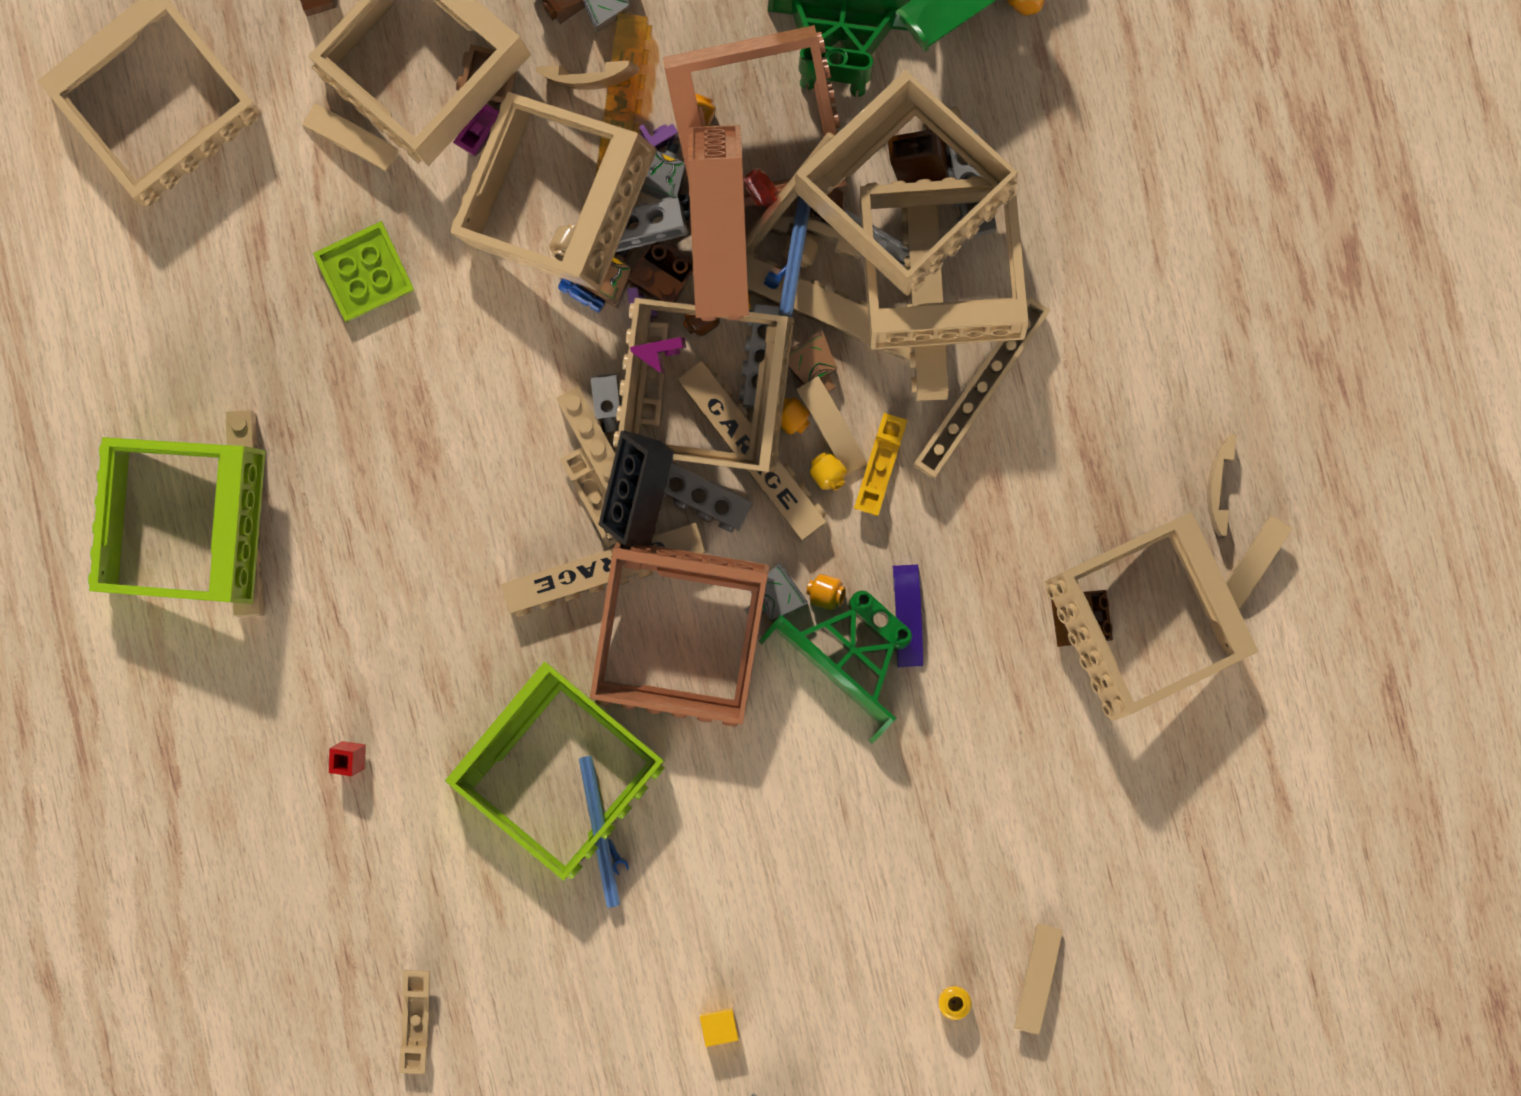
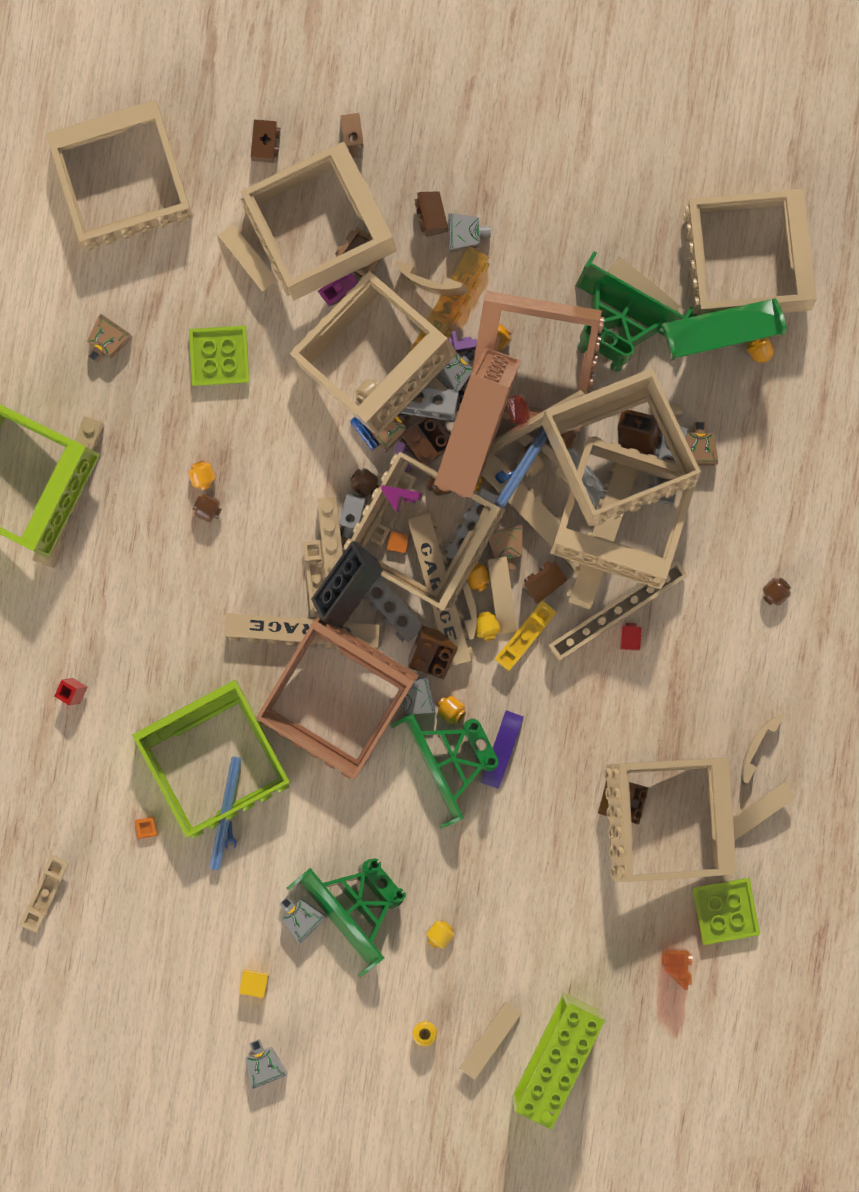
camera: 25 degrees right, 0 degrees up
(216, 305) = (107, 338): none -> medium nougat torso
(401, 426) = (201, 475): none -> light orange head
(424, 464) = (207, 508): none -> reddish brown head
(508, 889) = (146, 827): none -> orange tile
(605, 355) = (364, 482): none -> reddish brown head
(677, 412) = (398, 542): none -> orange tile
(744, 923) = (301, 918): none -> light grey torso
(774, 531) = (432, 653): none -> reddish brown slope
(808, 477) = (470, 624): none -> tan slope
(843, 852) = (389, 898): none -> green piece
(878, 388) = (544, 582): none -> reddish brown slope
(924, 873) = (440, 934): none -> yellow head
(1005, 142) = (702, 445): none -> medium nougat torso
(1010, 414) = (630, 637): none -> red brick
(1133, 969) = (557, 1060): none -> lime door
(1166, 286) = (776, 591): none -> reddish brown head
(1229, 792) = (676, 964): none -> clear orange slope
(1262, 703) = (726, 911): none -> lime plate

